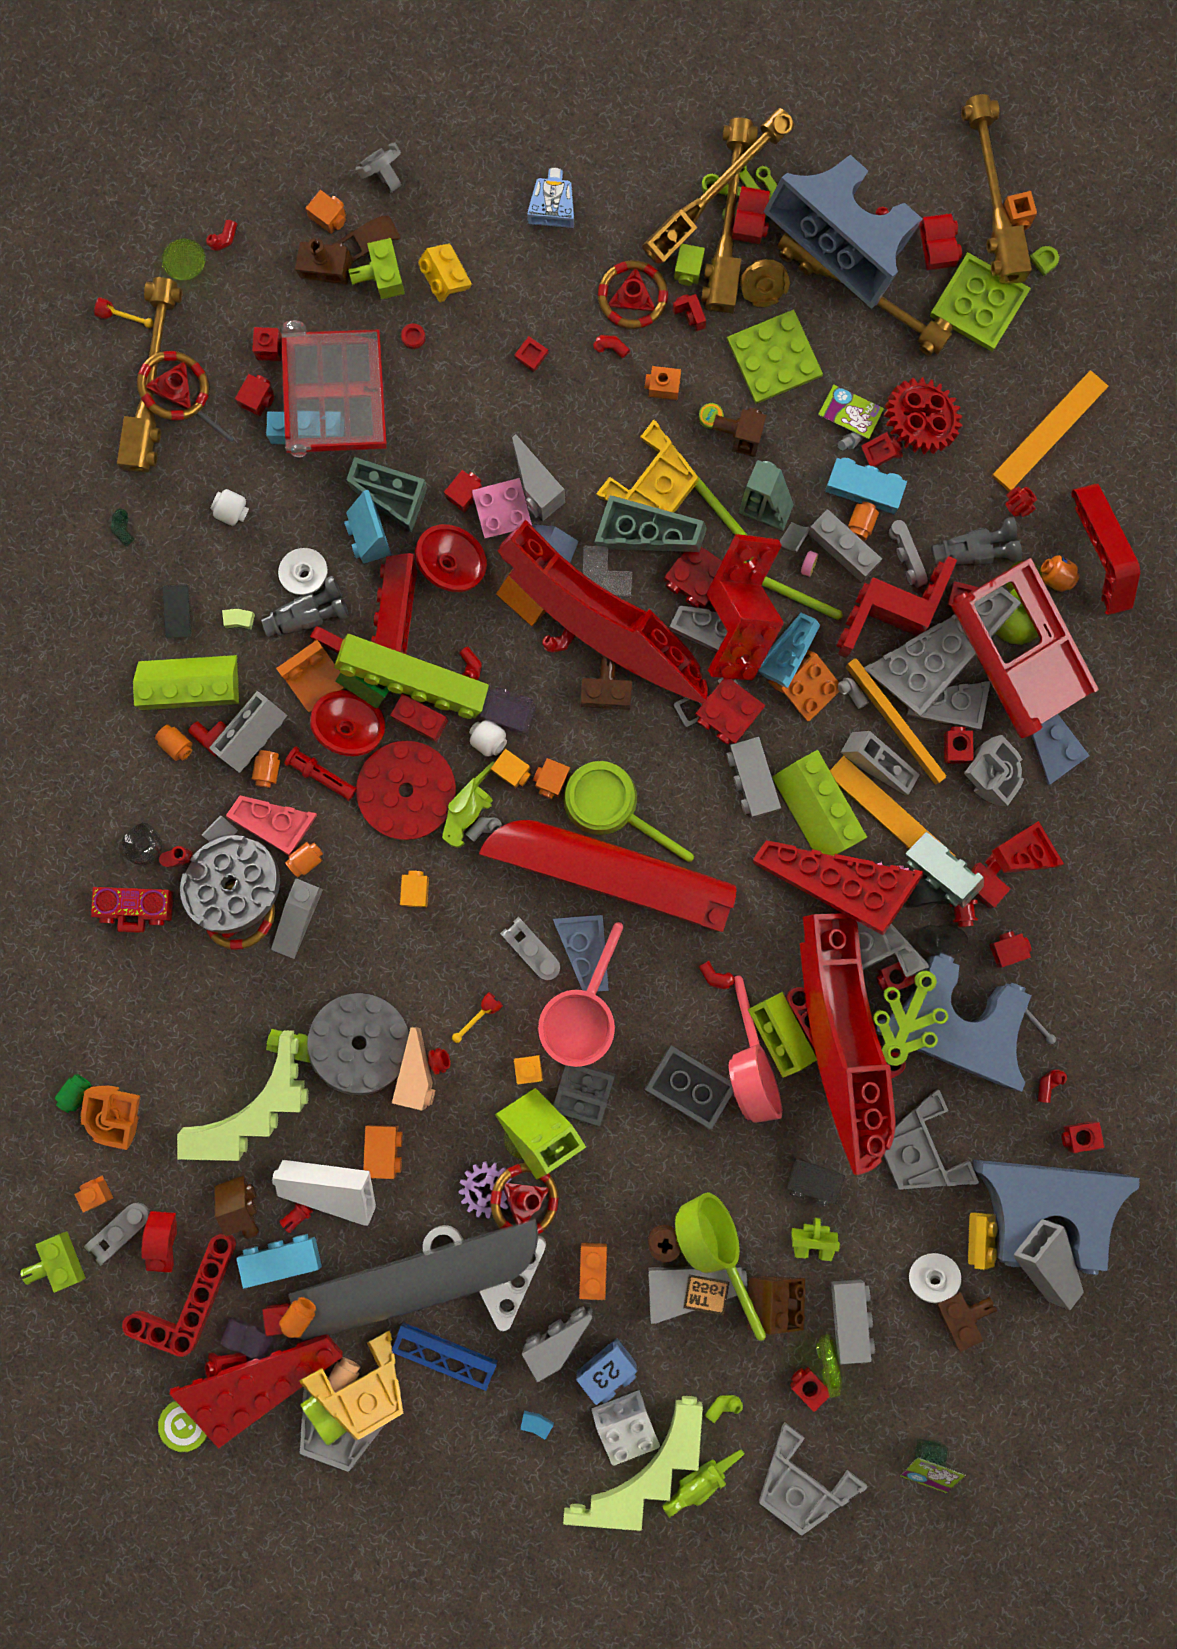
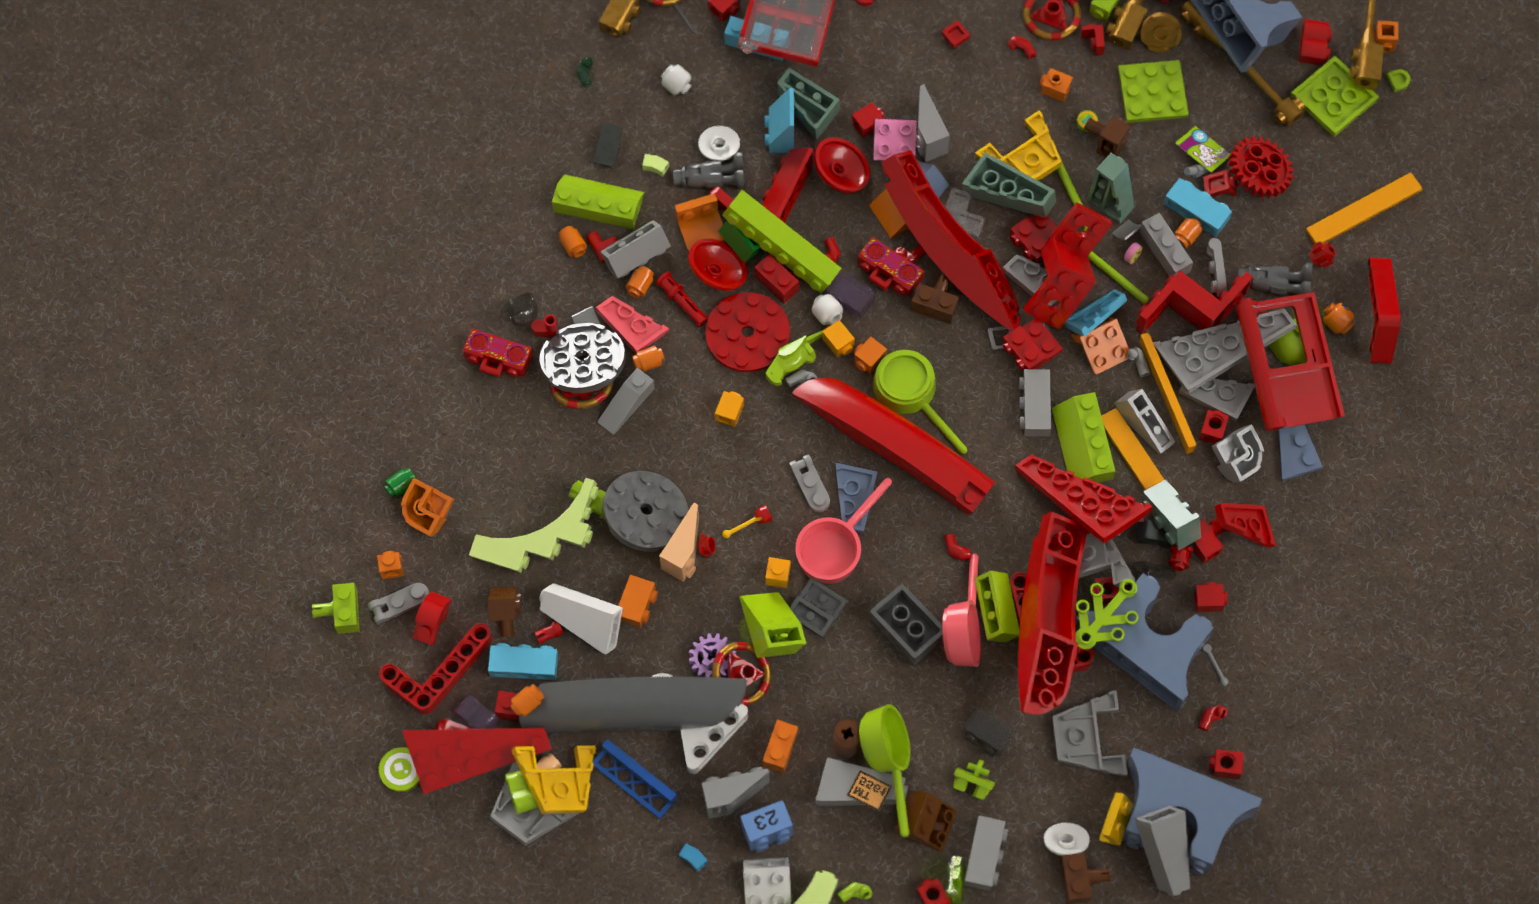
camera: 15 degrees right, 15 degrees down
(533, 659) = (891, 266): none -> red piece

